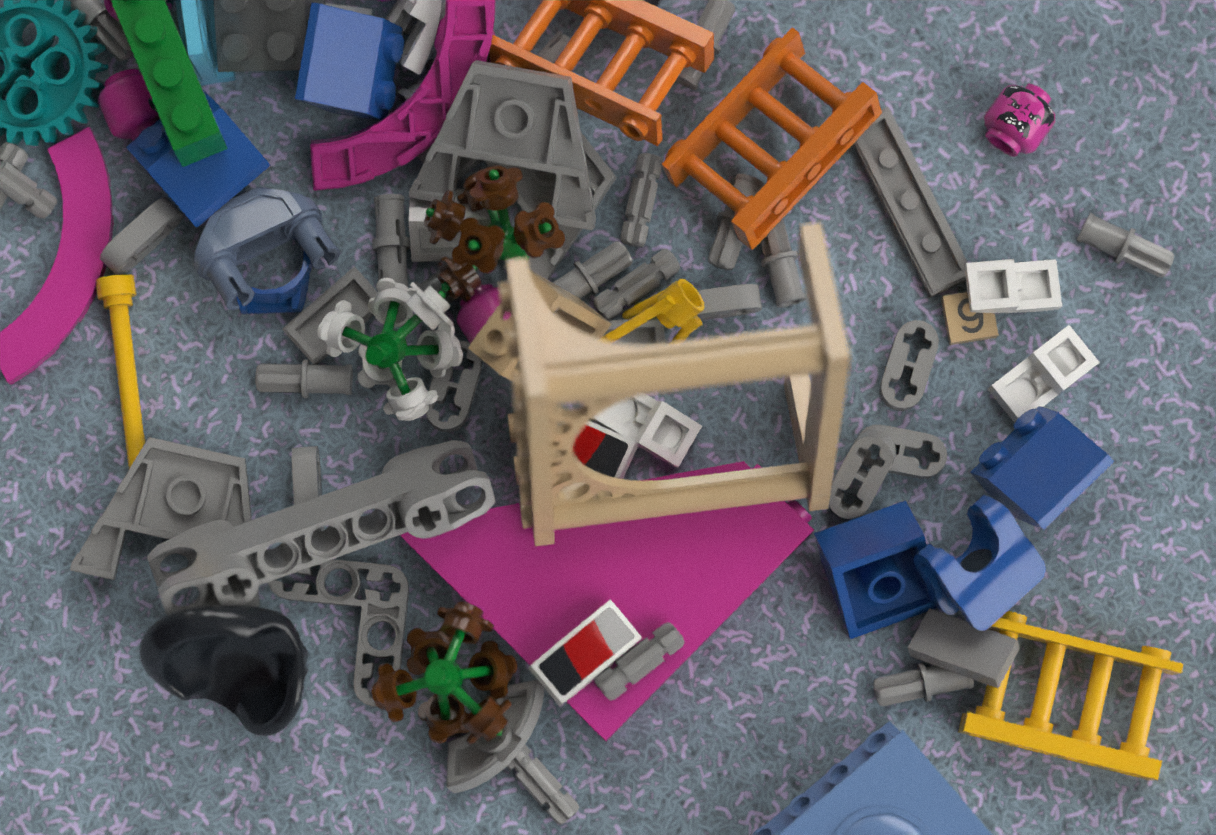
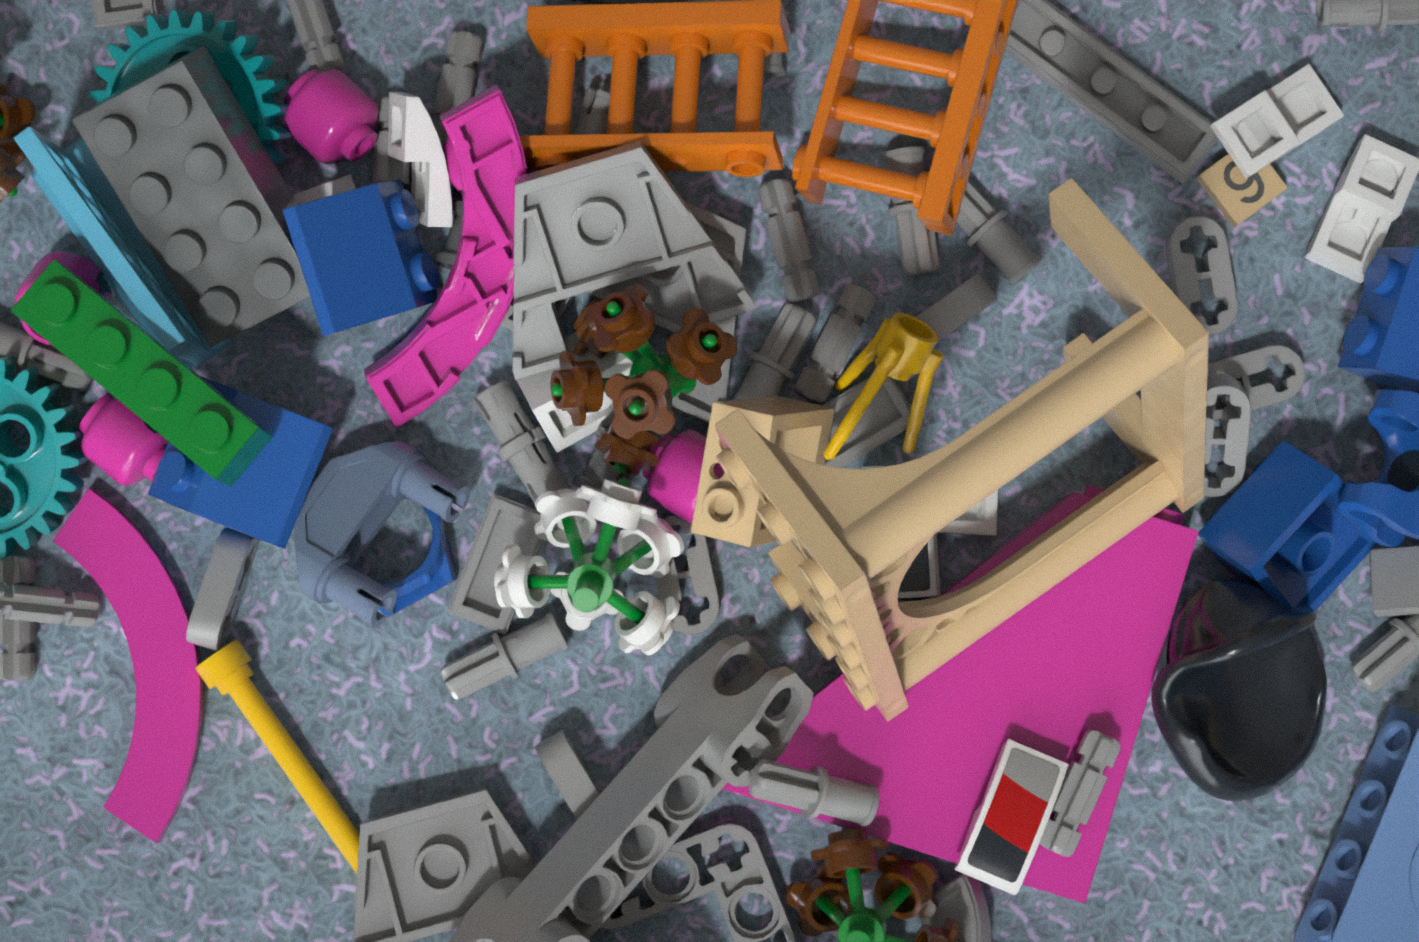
camera: 30 degrees left, 5 degrees up
(460, 564) = (814, 791): none -> light grey axle
(787, 654) = (1240, 690): none -> black piece

